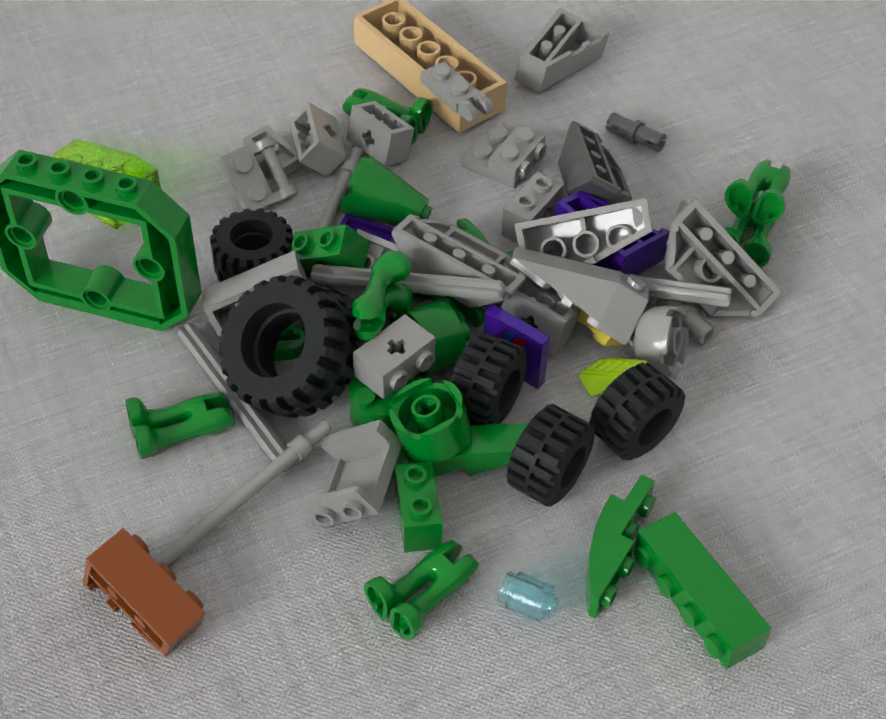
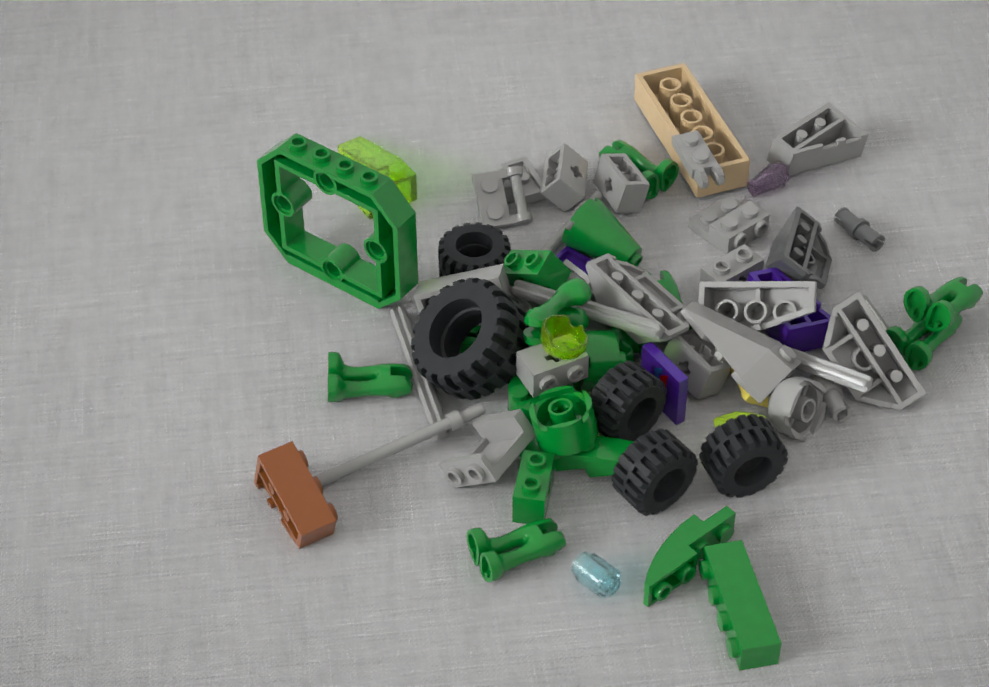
camera: 20 degrees right, 5 degrees down
(405, 326) = (562, 339): none -> clear neon green hair
(527, 97) = (769, 179): none -> clear purple cone

